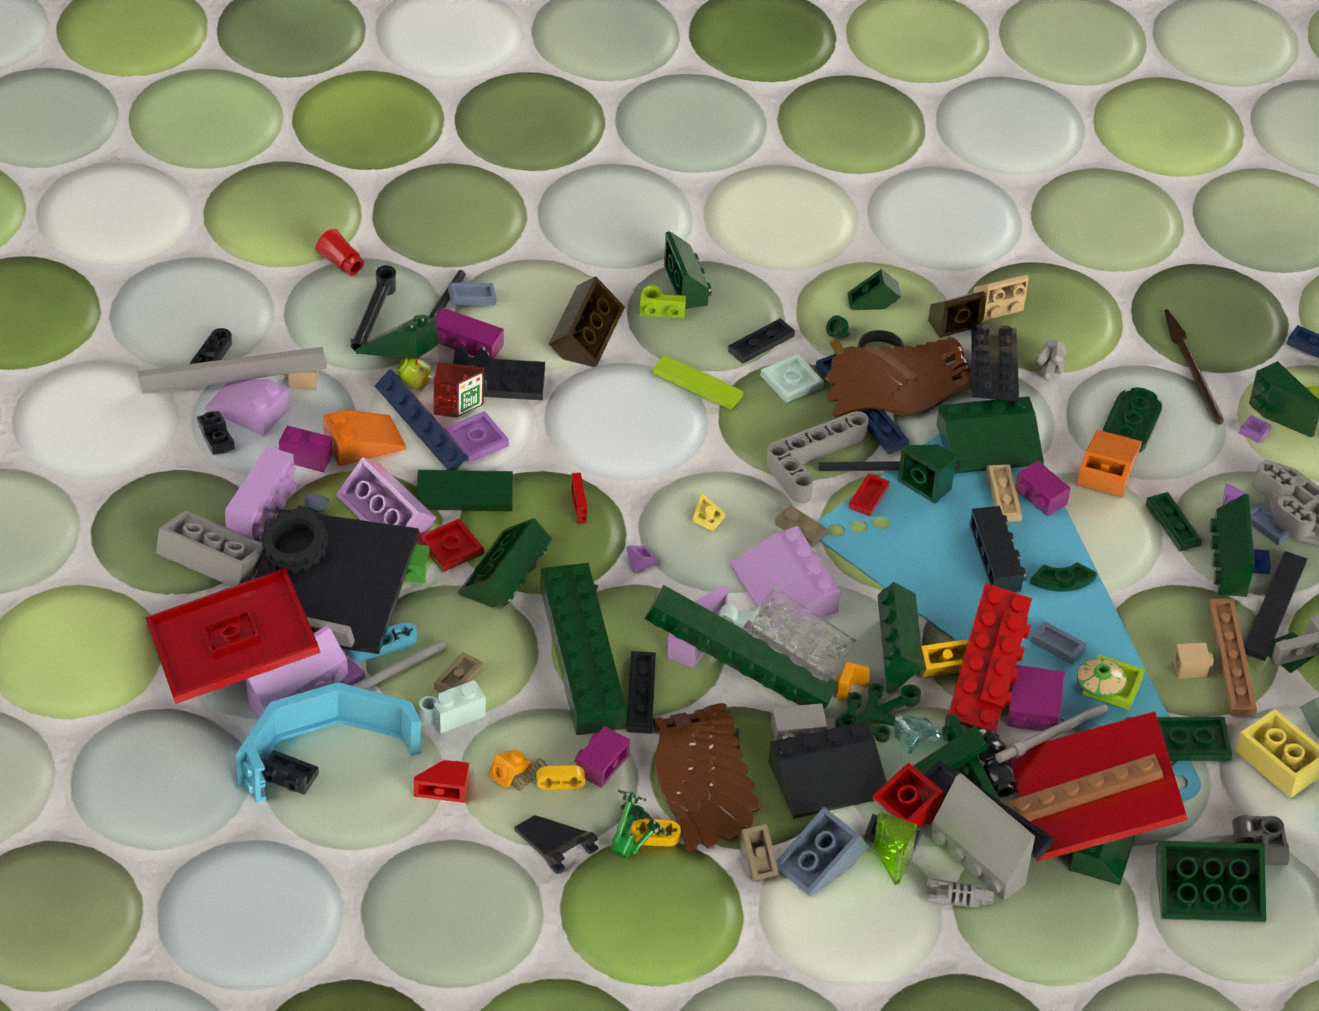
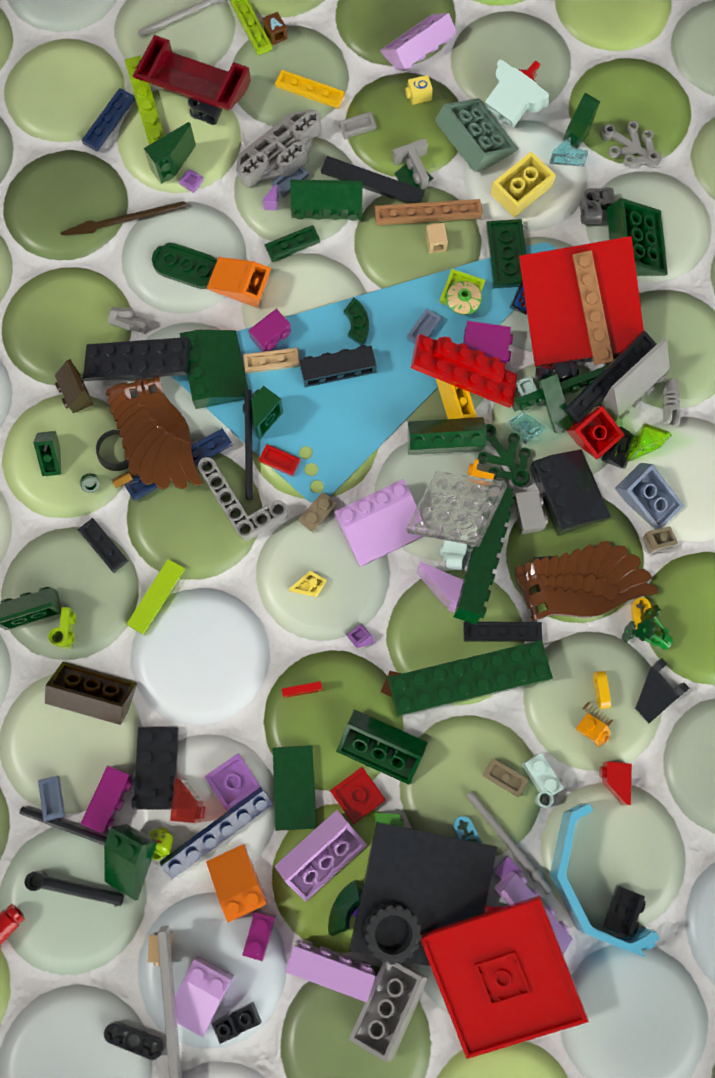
camera: 90 degrees left, 30 degrees up
(316, 502) = (320, 918): sand blue tile -> none
(341, 632) = (488, 891): light grey tile -> none
(603, 756) = (577, 658): magenta brick -> none
(792, 378) = (148, 520): light aqua tile -> none
(1003, 296) = (52, 350): tan slope -> none
(1019, 748) = (546, 355): light grey bar -> none

